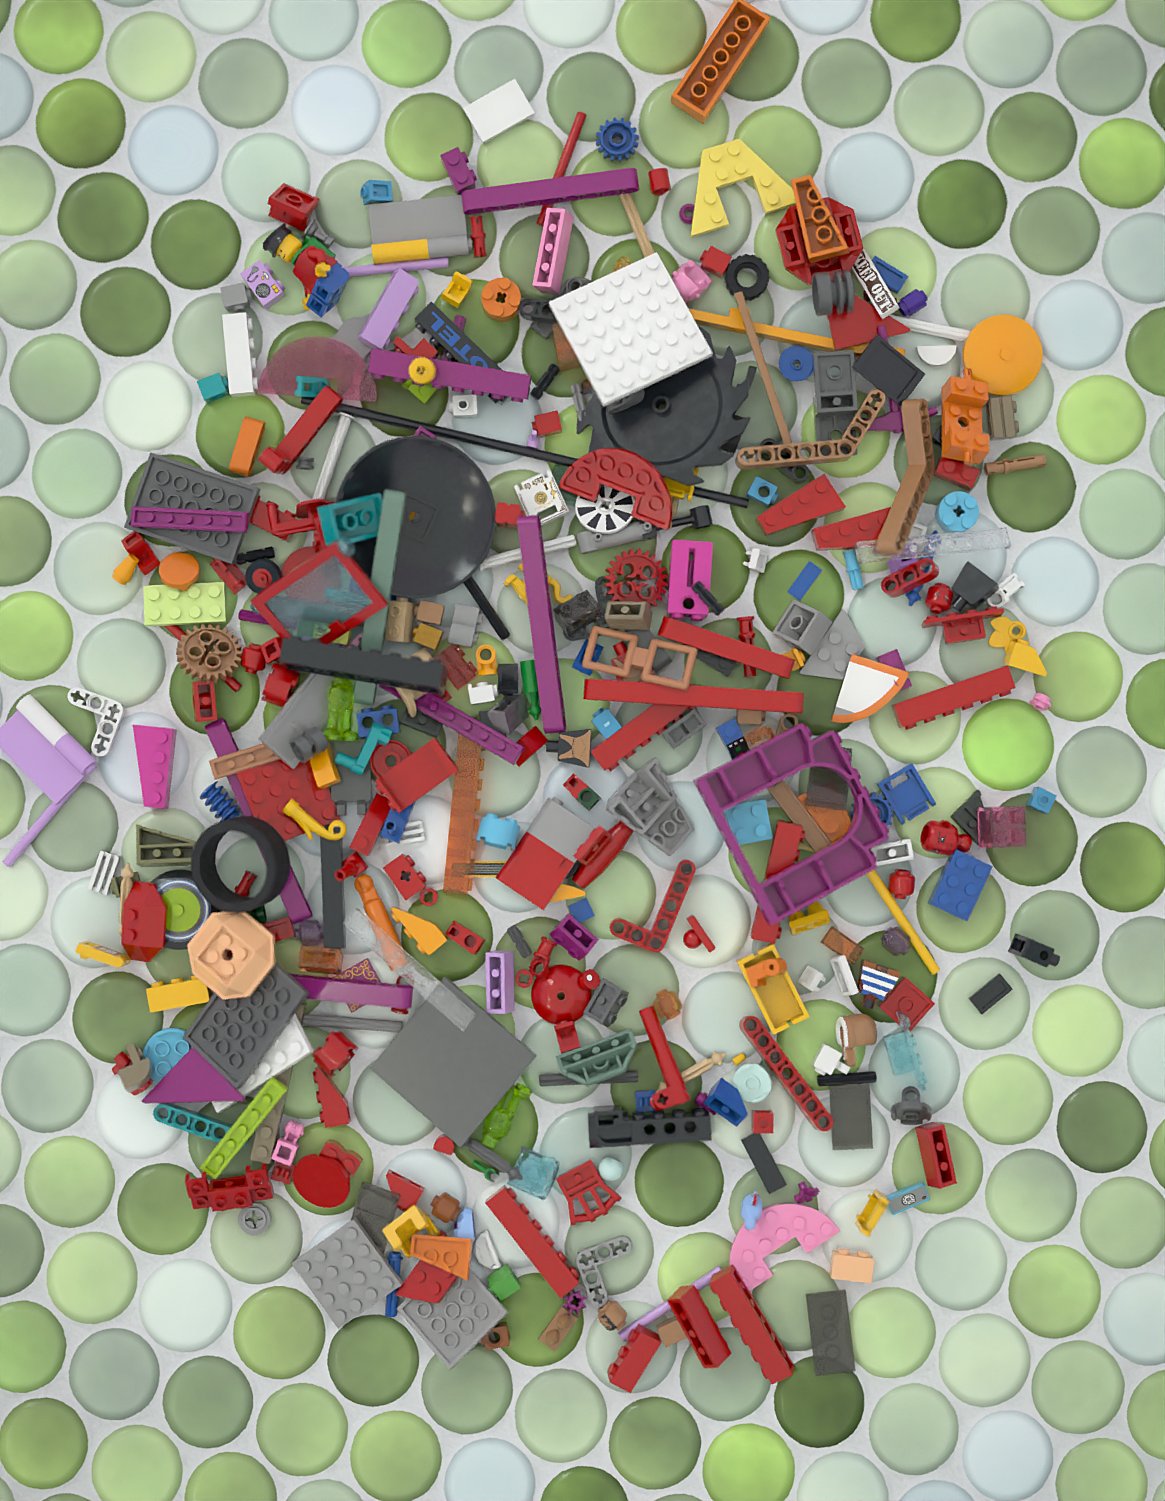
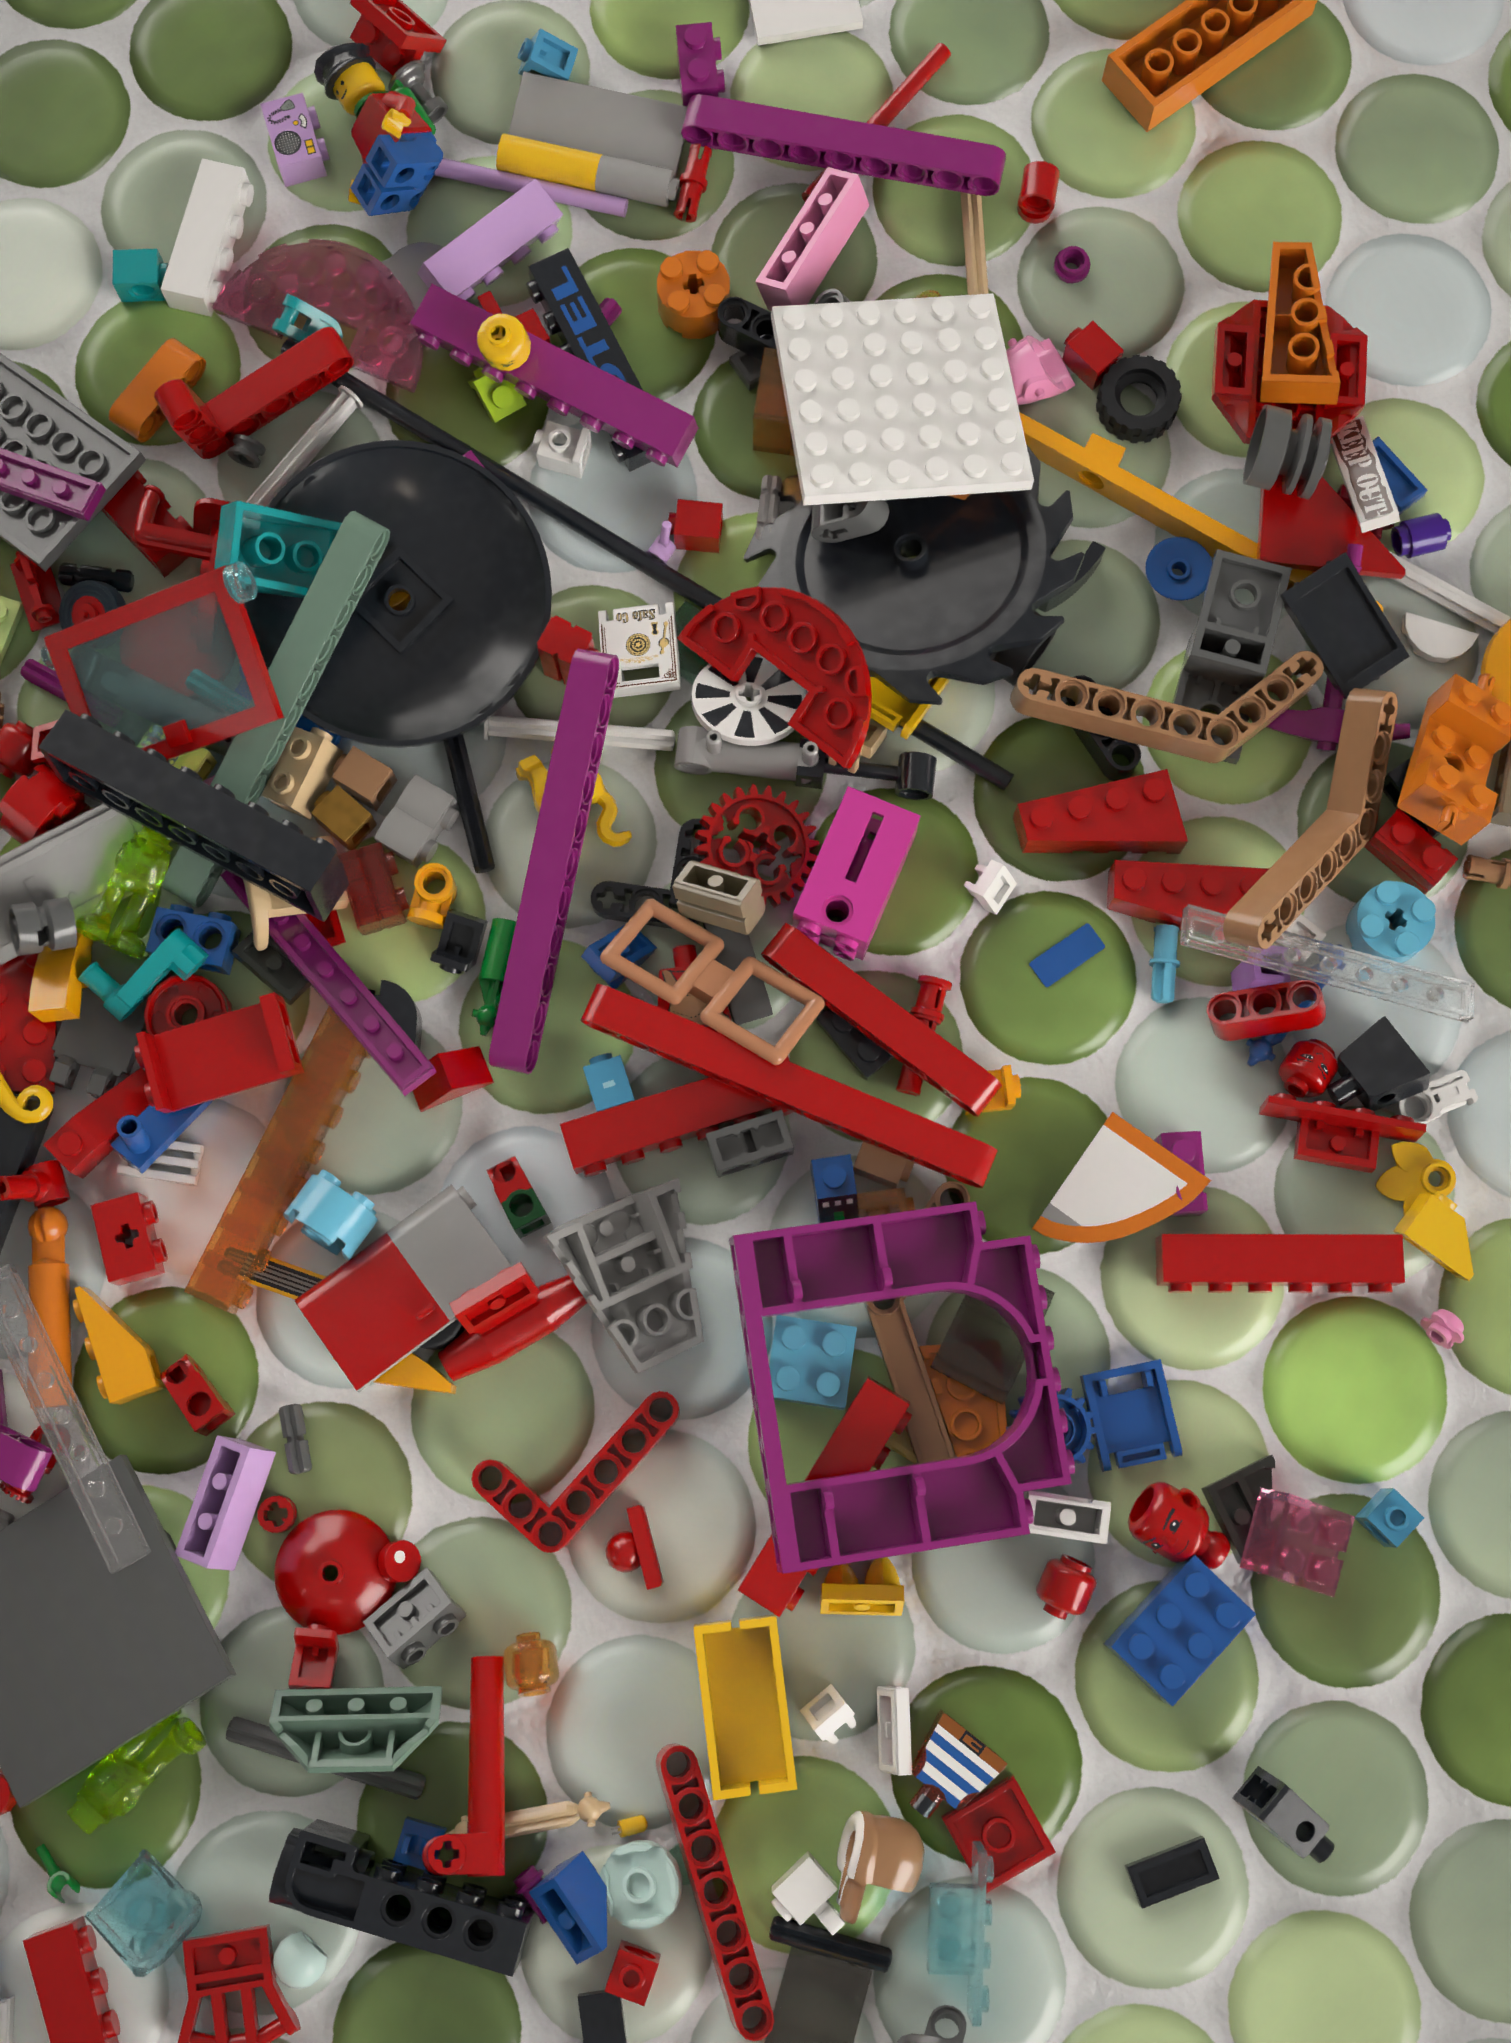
camera: 20 degrees right, 10 degrees down
(236, 297) = (240, 142): light grey brick -> none
(422, 896) = (147, 1289): red bush -> none
(457, 289) = (624, 255): yellow bracket -> none
(482, 693) = (401, 952): white brick -> none
(493, 1159) = (76, 1855): dark grey wheel -> none
(508, 713) = (434, 1002): flat silver brick -> none
(542, 956) = (326, 1485): red connector -> none
(545, 381) = (720, 455): black axle -> none
(572, 747) = (531, 1107): torso -> none
(573, 937) = (397, 1466): magenta brick -> none
(577, 613) = (629, 865): clear smoke brick -> none
(581, 910) = (434, 1422): blue tile -> none
(620, 129) = (990, 88): blue gear -> none
(708, 598) = (876, 911): black axle -> none
(728, 165) = (1172, 209): light yellow wing -> none
(761, 483) = (1044, 753): dark azure brick -> none
(762, 367) = (1115, 544): medium nougat tile -> none
(764, 970) = (741, 1662): orange leg -> none
(802, 627) = (1036, 1034): light grey slope -> none
(834, 650) = (1081, 1098): light grey wing -> none
(842, 945) = (911, 1668): clear orange tile -> none
(895, 941) = (1018, 1697): head -> none
(903, 921) = (1045, 1663): yellow piece -> none

